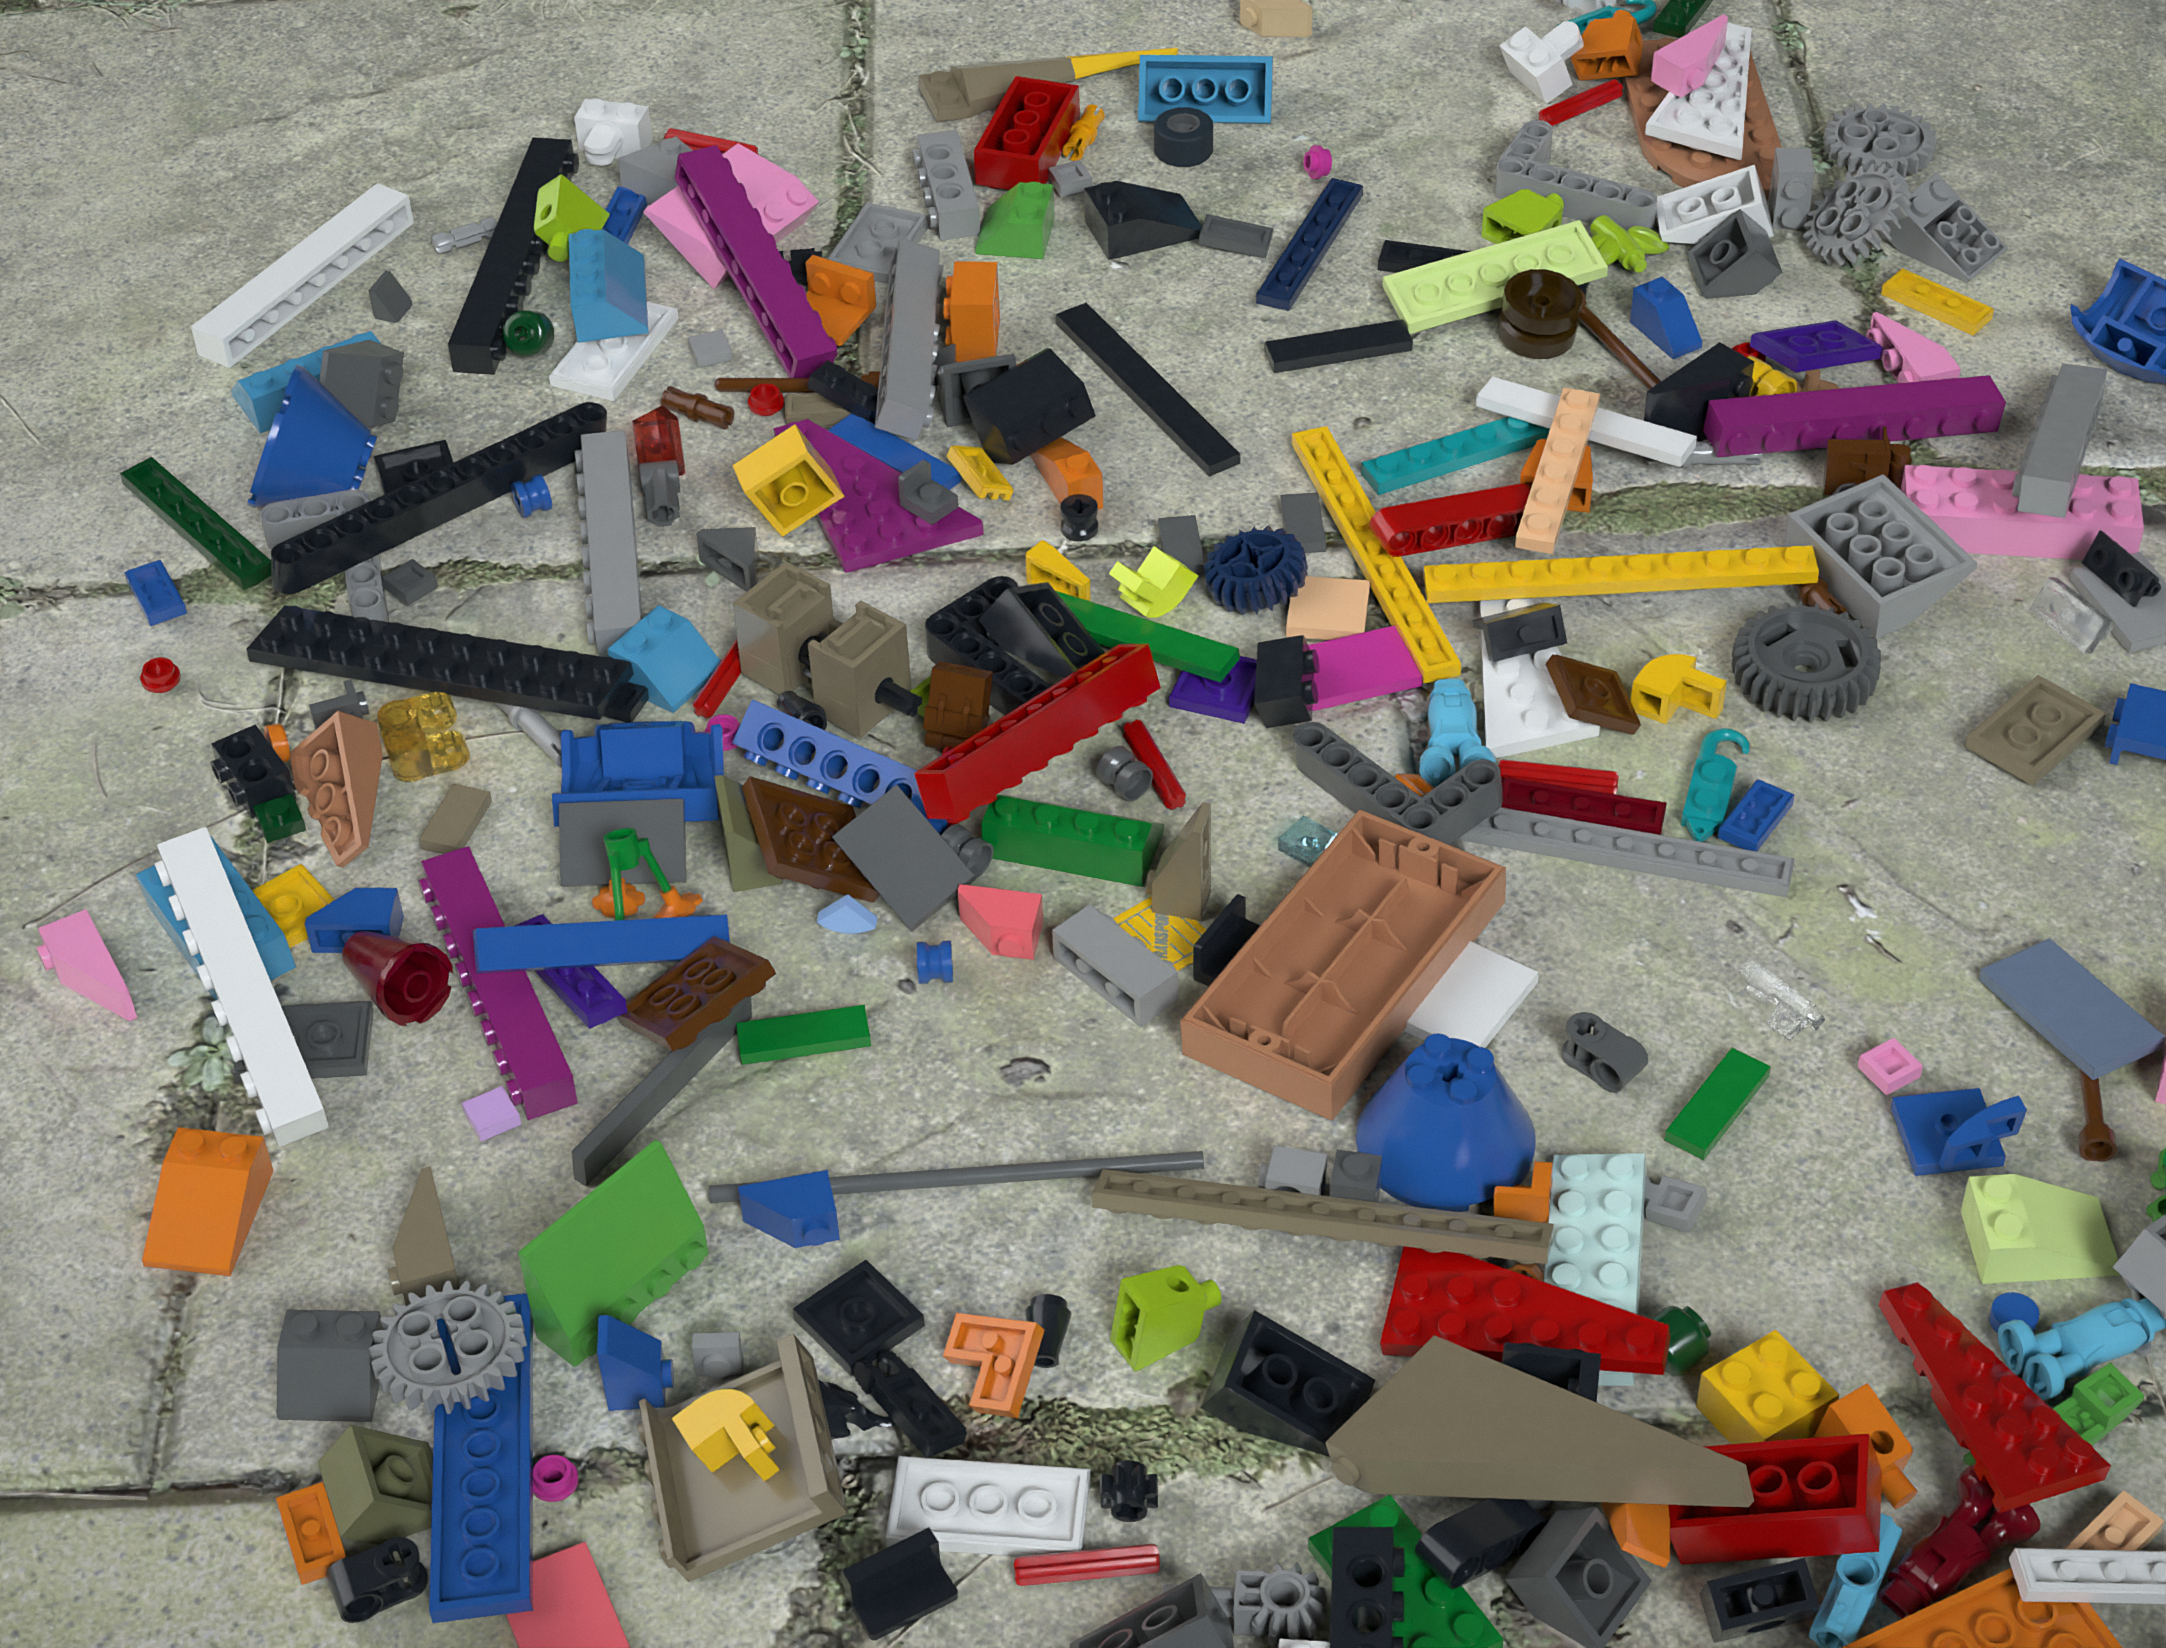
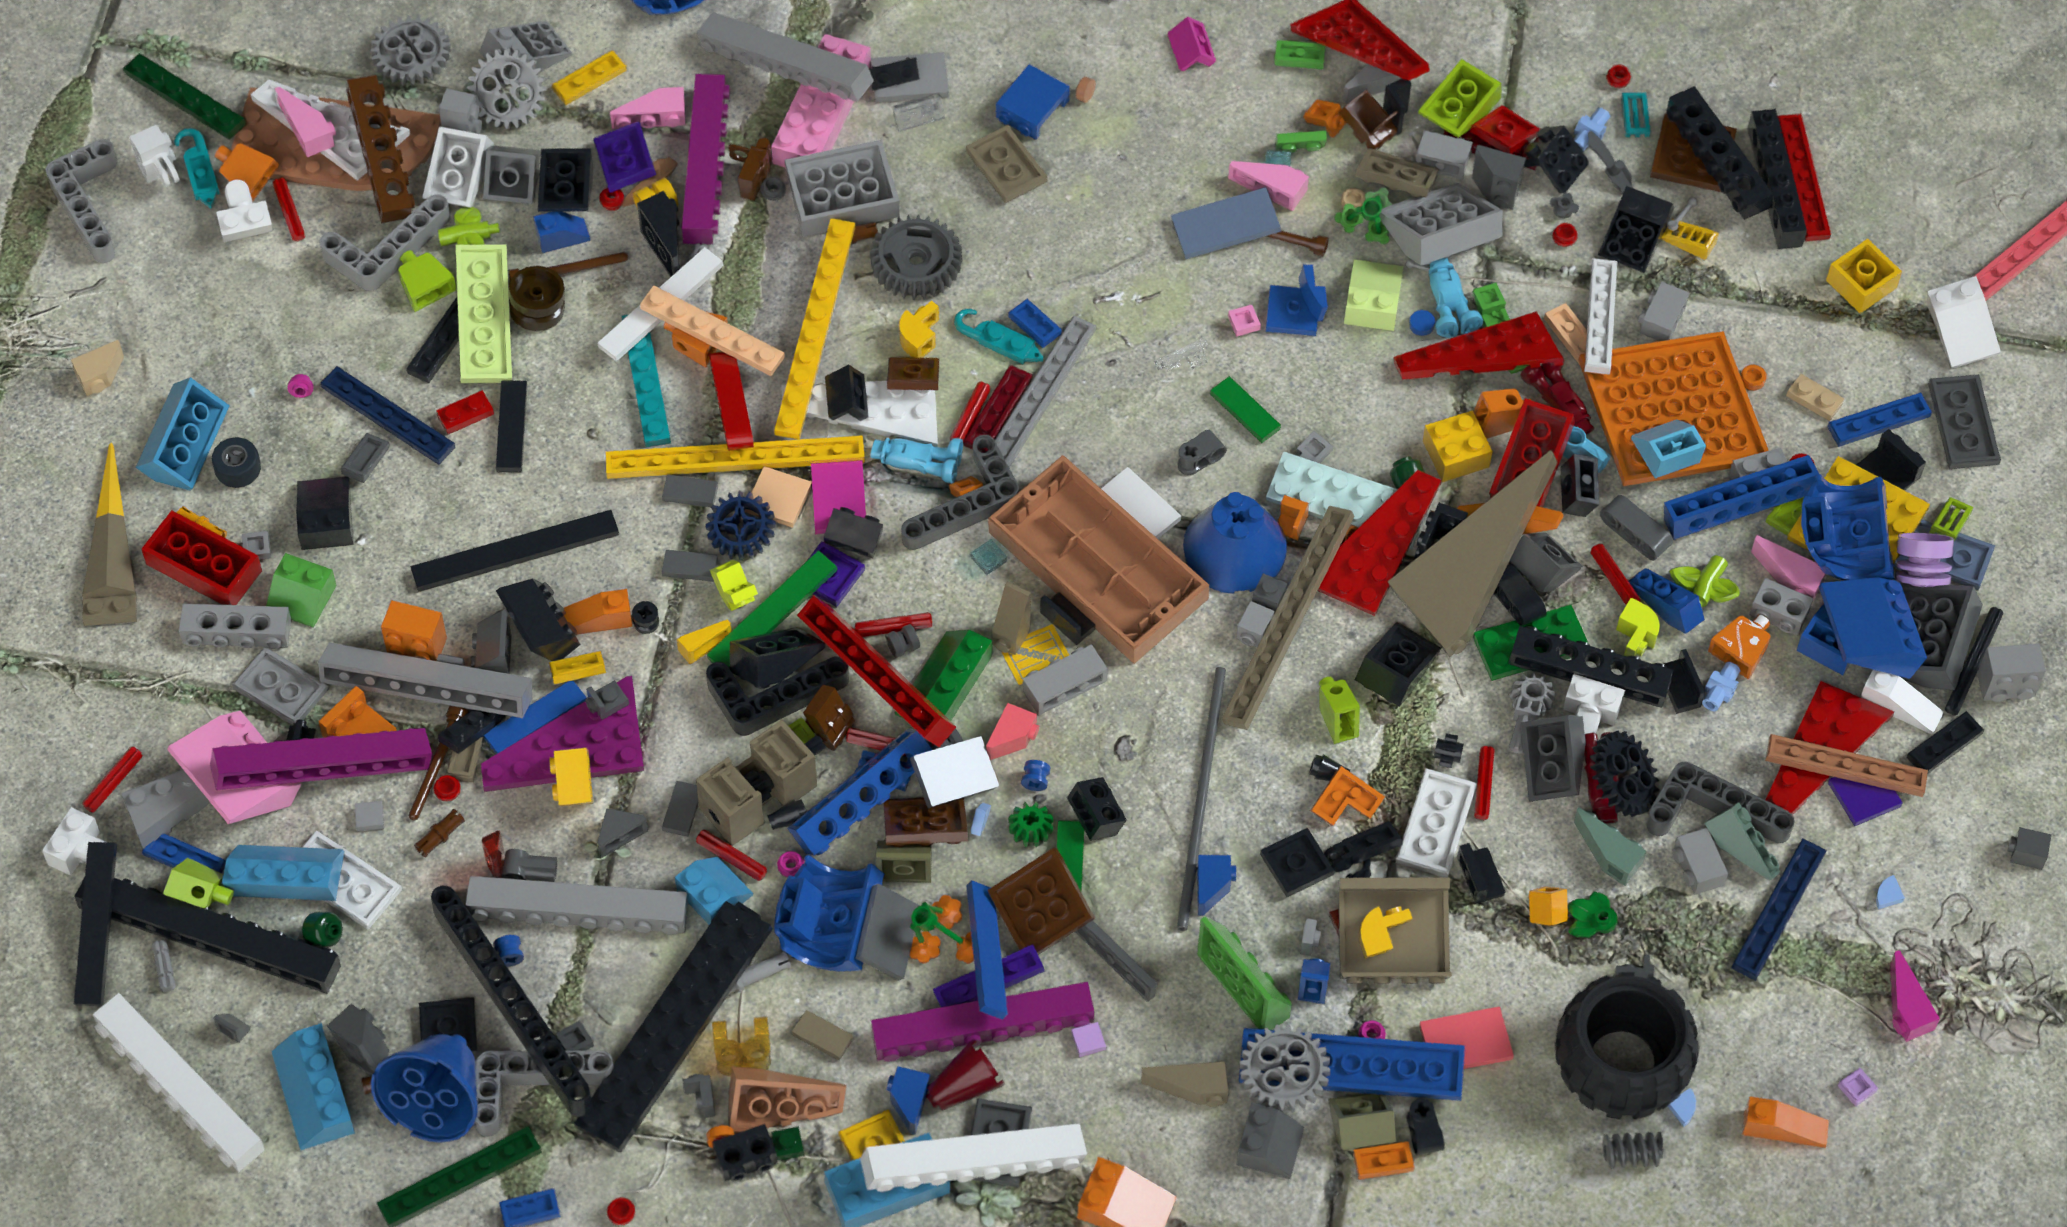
camera: 80 degrees left, 15 degrees up
(499, 158) = (95, 924): none -> black tile
(847, 971) = (1021, 827): none -> green gear
(883, 1032) = (1096, 808): none -> black brick
(1342, 303) = (465, 412): none -> red plate
(1688, 120) = (389, 206): none -> reddish brown brick
(1739, 295) = (565, 179): none -> black slope

